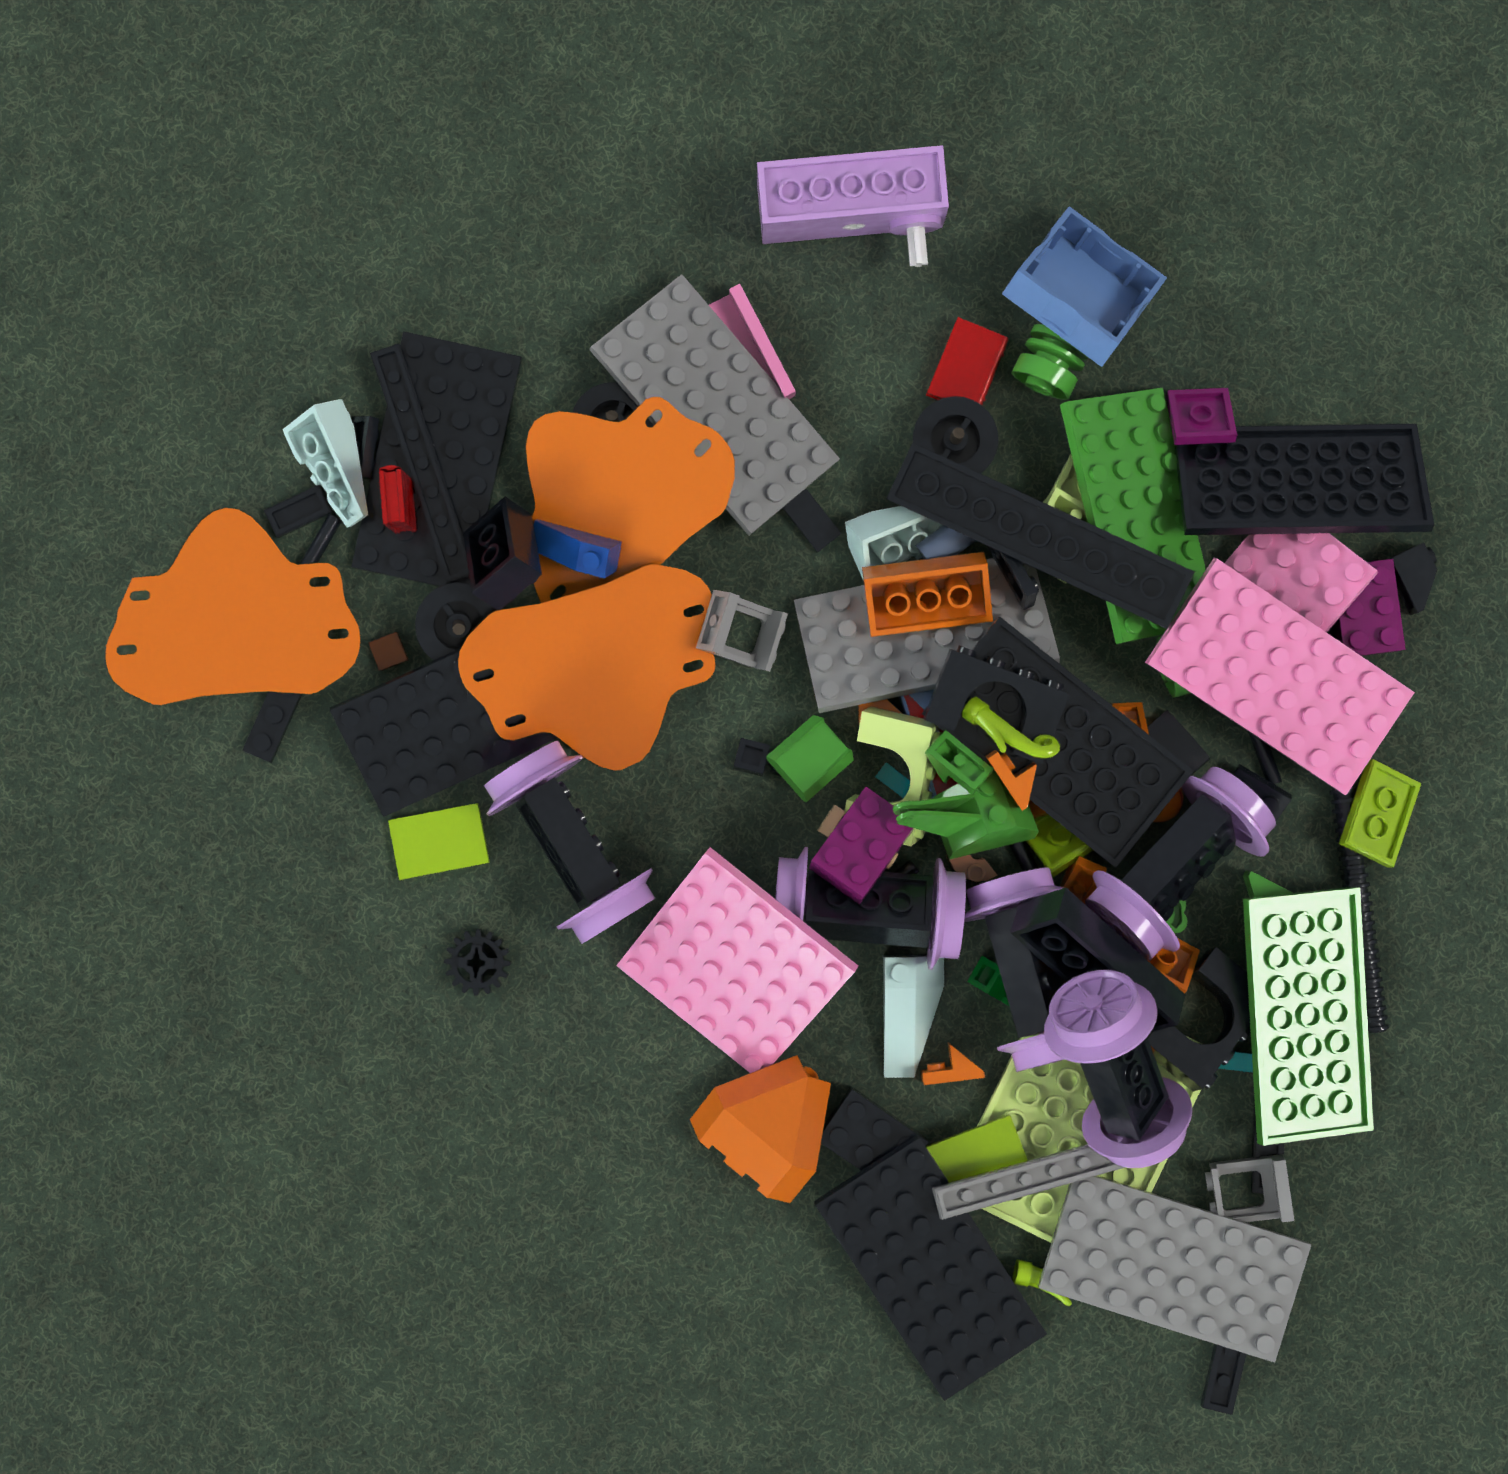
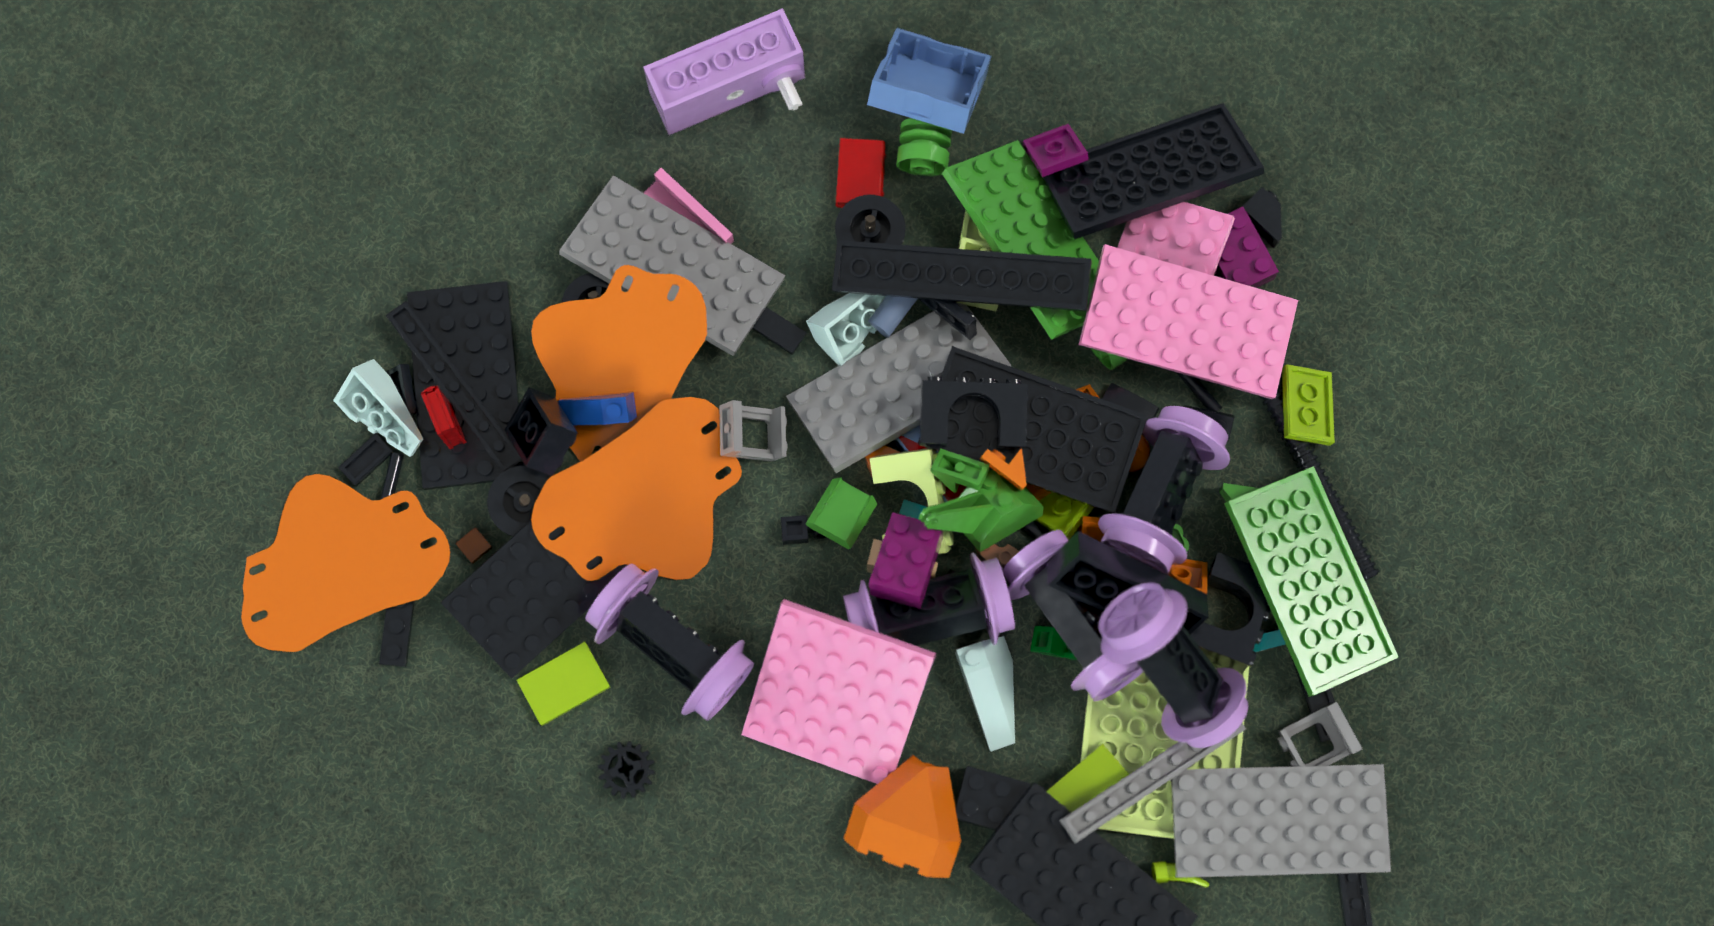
camera: 20 degrees left, 10 degrees down
(927, 594) = (890, 352): orange slope -> none
(961, 1069) = (1049, 721): orange slope -> none
(1001, 732) = (962, 425): lime plant -> none

